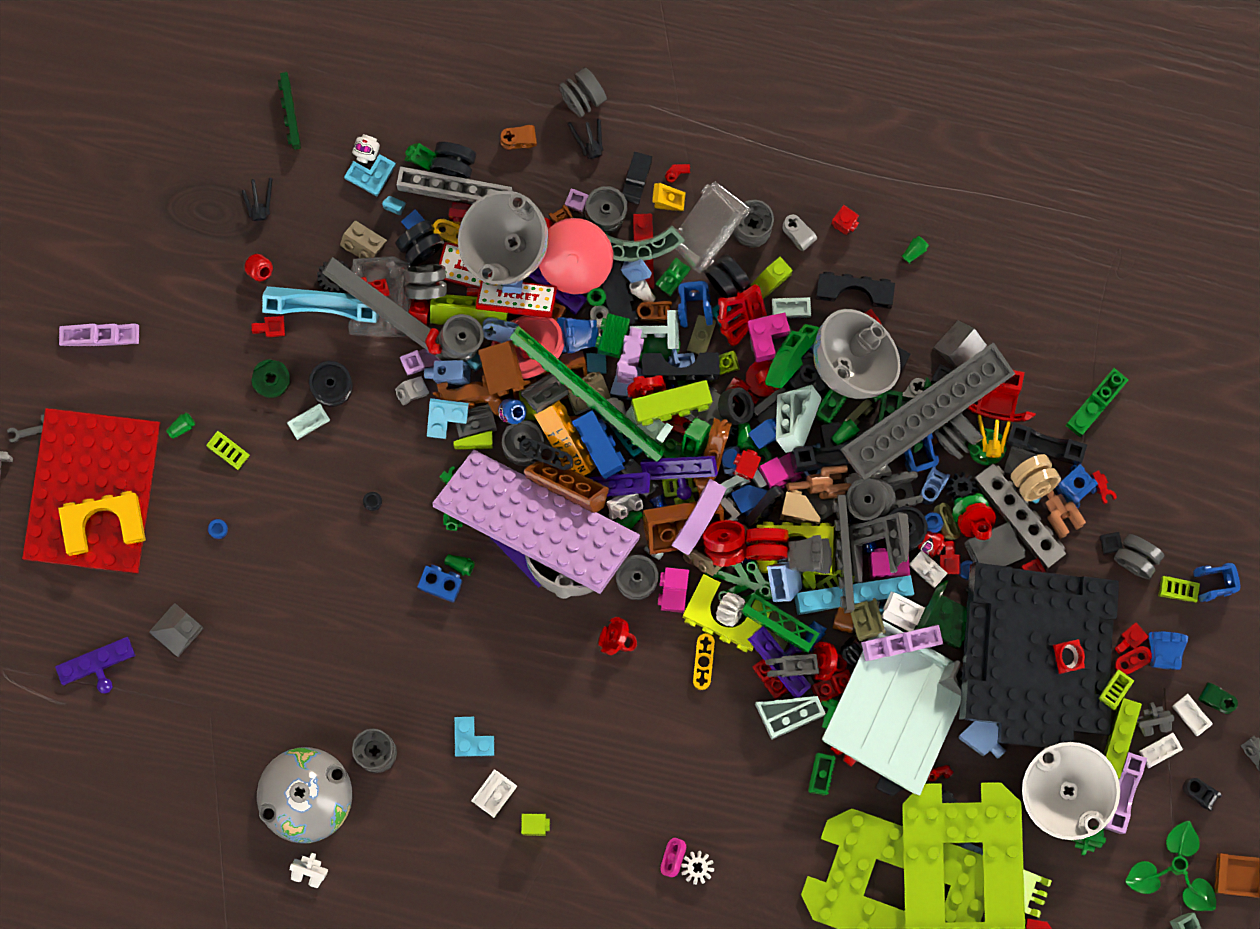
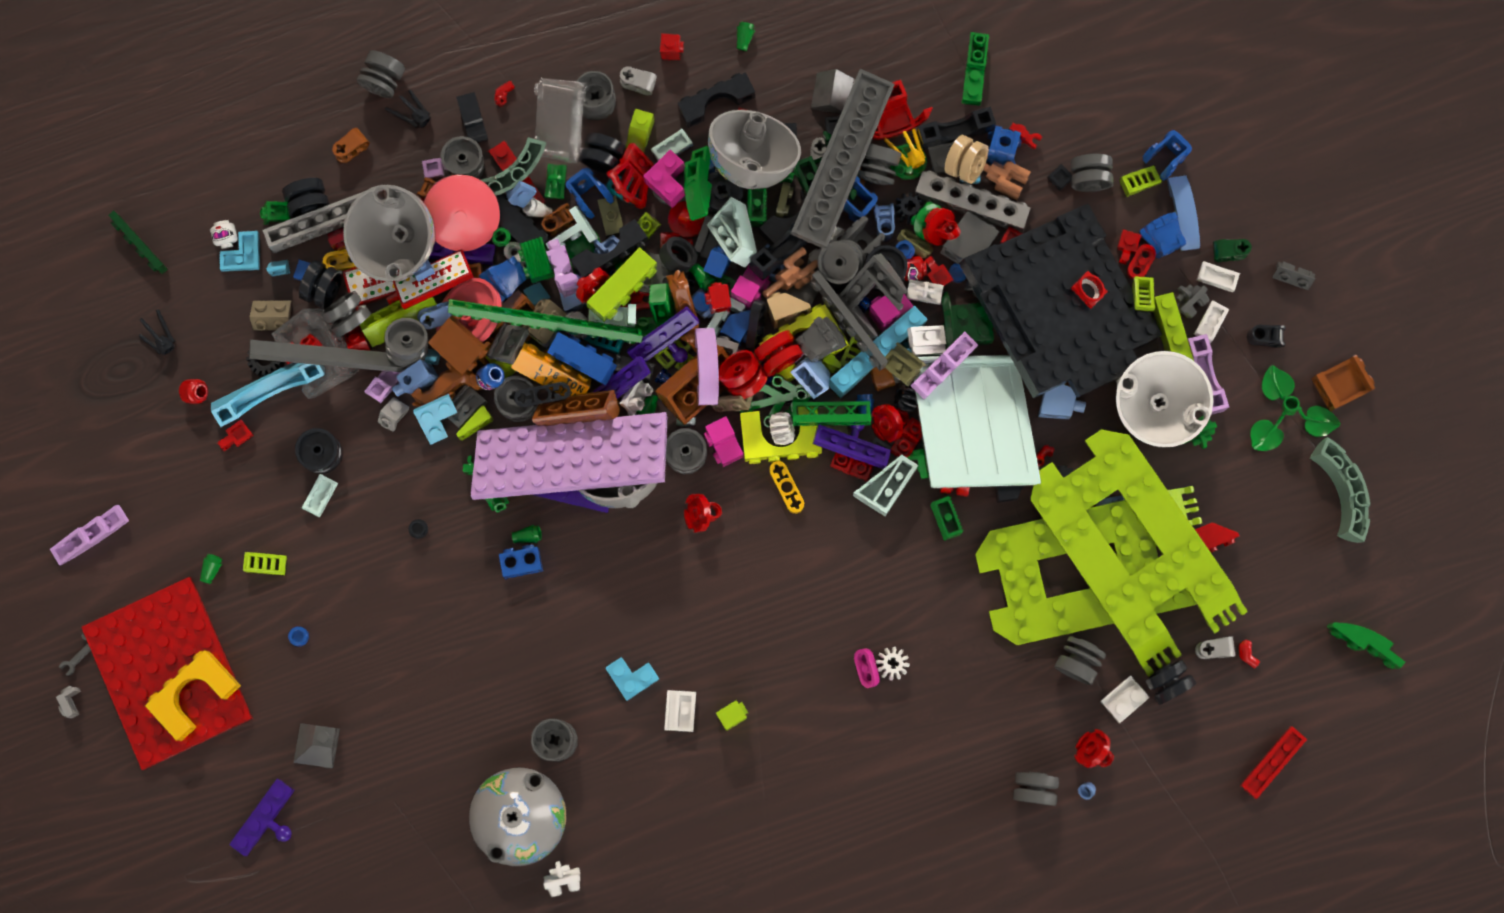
camera: 30 degrees left, 0 degrees up
(269, 389) = (262, 468): dark green plate -> none
(433, 348) = (387, 364): red arm -> none
(668, 198) = (509, 119): yellow slope -> none
(794, 665) = (866, 441): dark grey hinge -> none
(845, 432) = (784, 219): green cone -> none
(952, 677) = (1004, 368): dark grey slope -> none
(1200, 640) = (1186, 211): none -> medium blue slope

